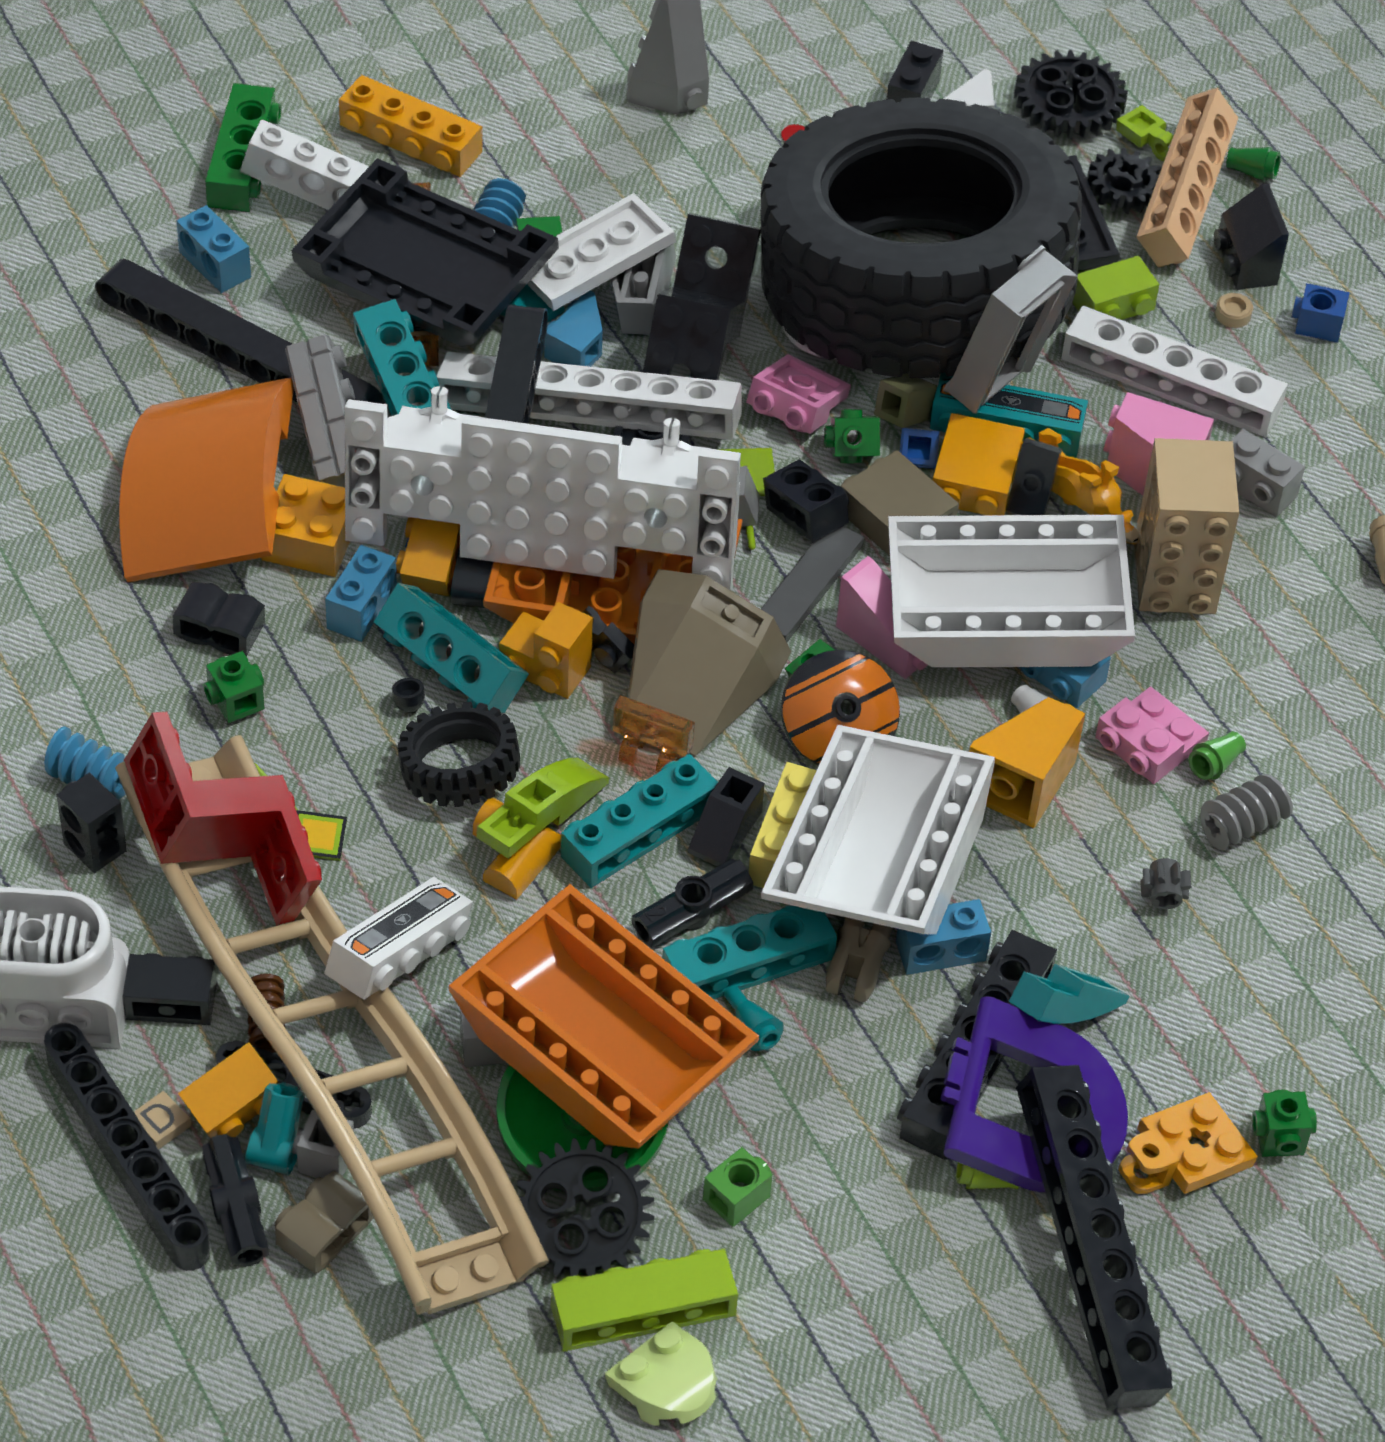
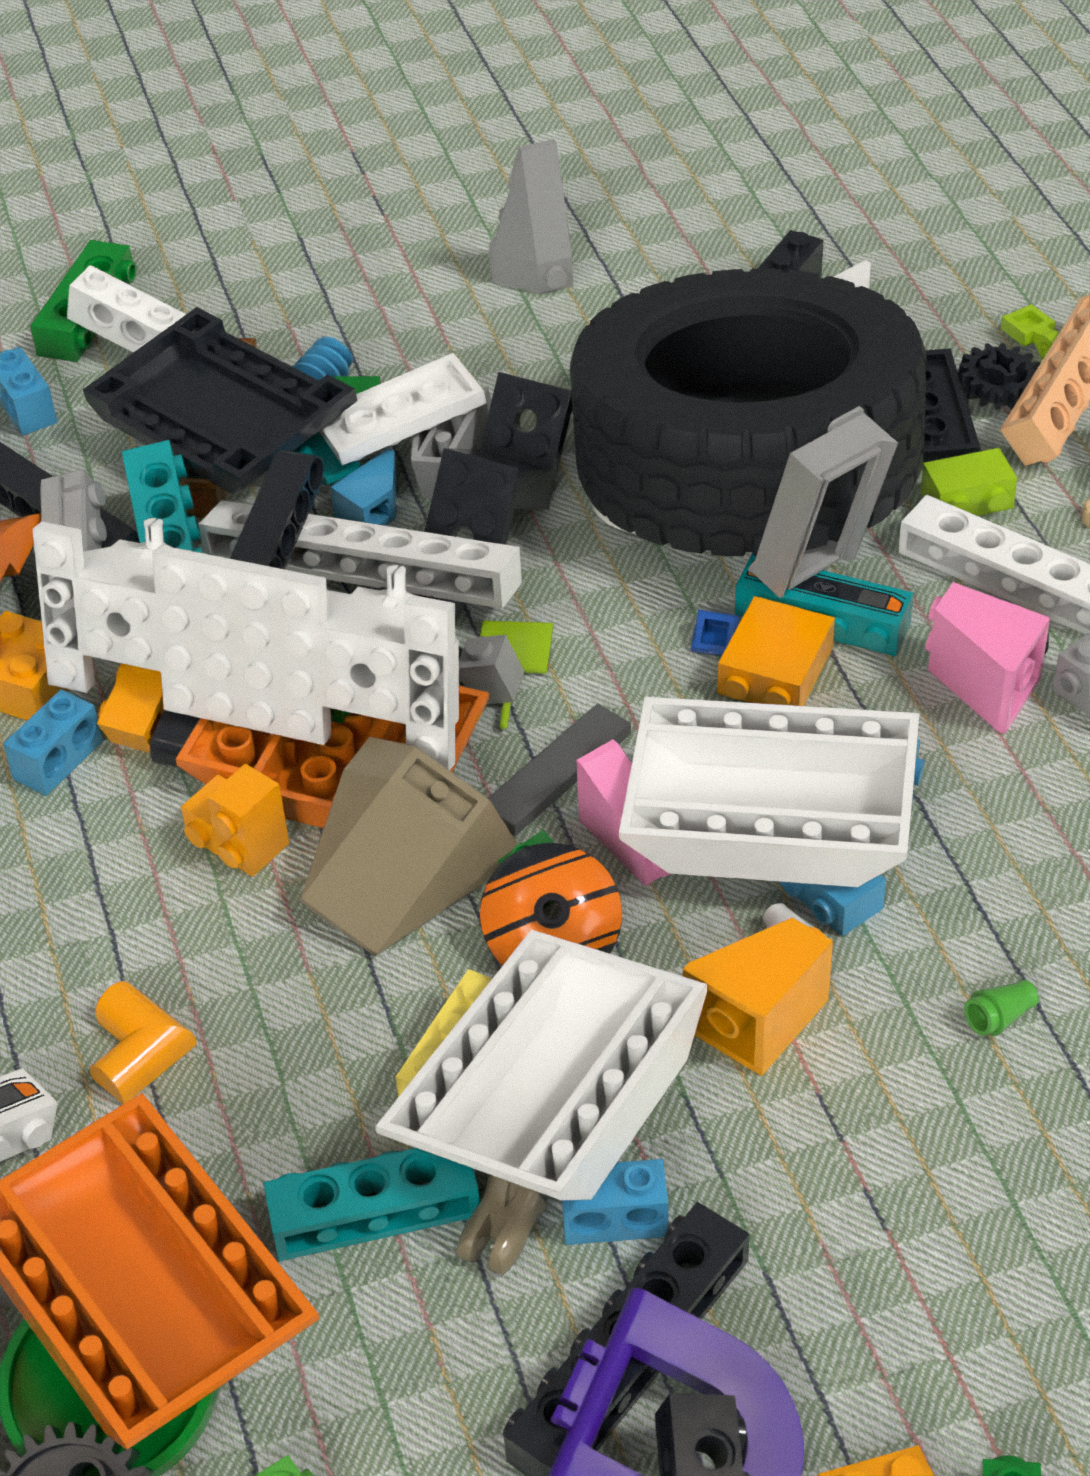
camera: 15 degrees right, 5 degrees down
(408, 694) = (71, 857): black hinge -> none
(410, 125) = (259, 289): light orange brick -> none
(464, 782) = (107, 957): black tyre -> none
(498, 676) = (129, 810): teal brick -> none
(538, 800) = (174, 984): lime slope -> none
(609, 643) = (304, 813): black plate -> none
(637, 820) = (287, 1023): teal brick -> none
(650, 725) = (323, 916): clear orange plate -> none
(708, 892) = (298, 1138): black piece -> none
(727, 817) = (387, 1029): black slope -> none
(756, 1018) = (361, 1293): teal cone -> none
(796, 394) = (590, 567): bright pink plate -> none
(806, 500) = (572, 678): black brick -> none
(867, 436) = (656, 614): green brick -> none
(893, 489) = (669, 670): dark tan brick -> none
(905, 400) = (706, 580): olive brick -> none
(1033, 478) = (834, 669): black plate -> none
(1049, 101) = (980, 288): black gear -> none
(1066, 996) = (748, 1296): teal slope -> none
(1088, 486) = (888, 681): light orange animal -> none
(1149, 734) = (922, 974): bright pink plate -> none
(1165, 883) = (907, 1161): dark grey gear -> none
(1186, 525) = (996, 732): tan brick -> none
(1244, 811) = (1022, 1076): light grey piece -> none

